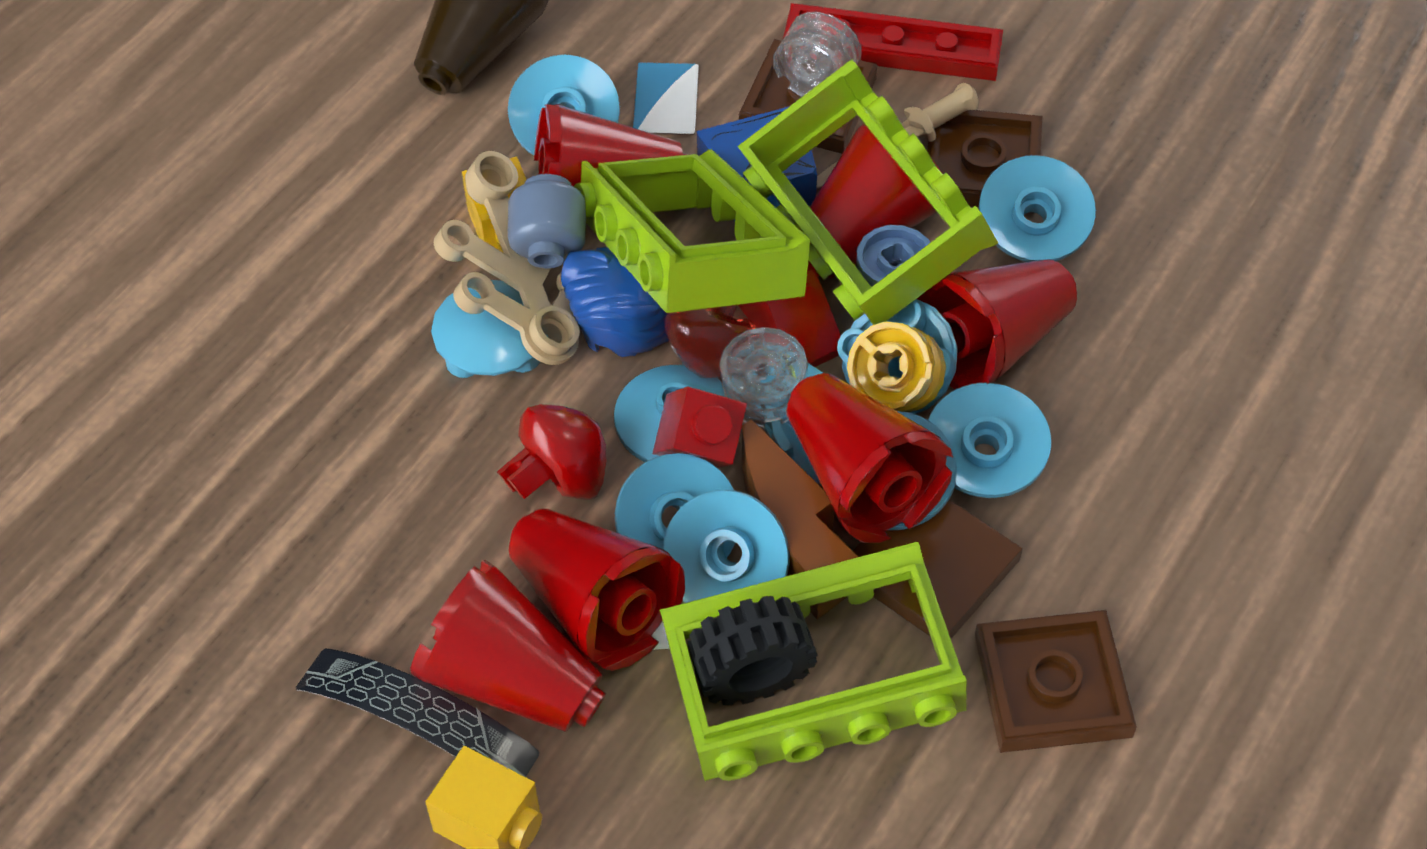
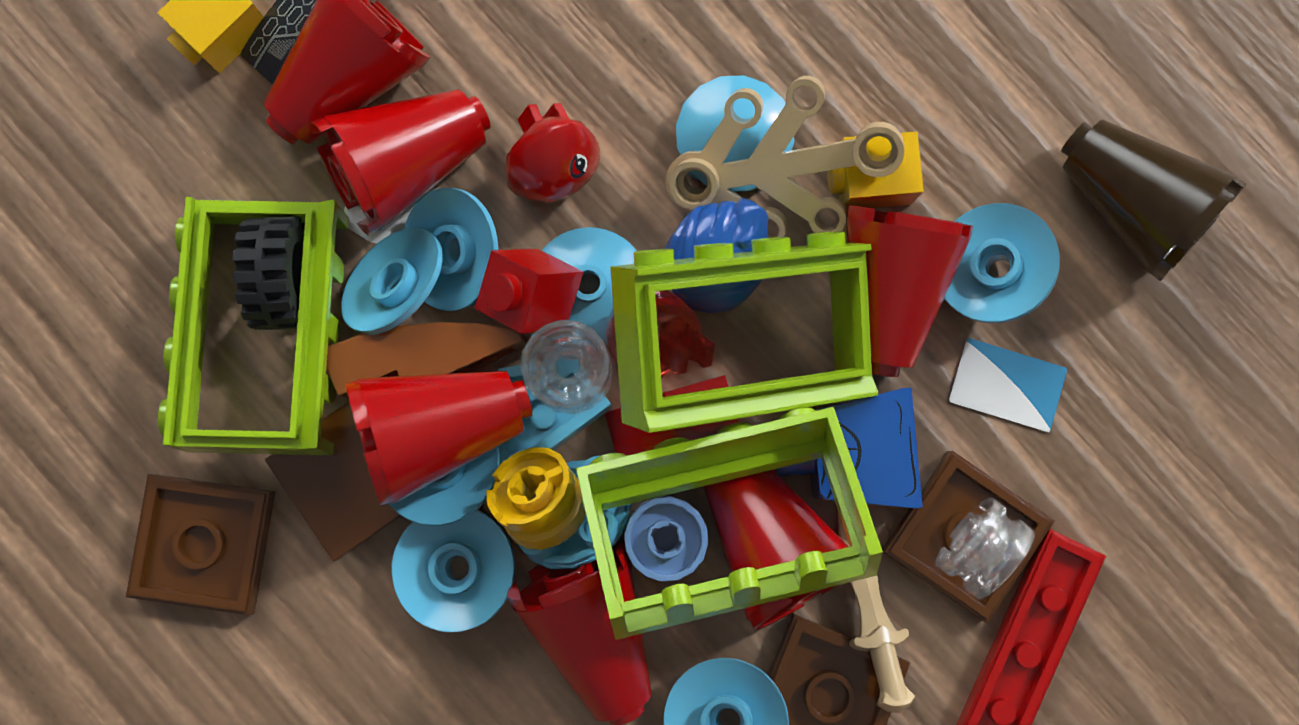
camera: 100 degrees right, 30 degrees up
(546, 220) = (804, 192): sand blue head -> none

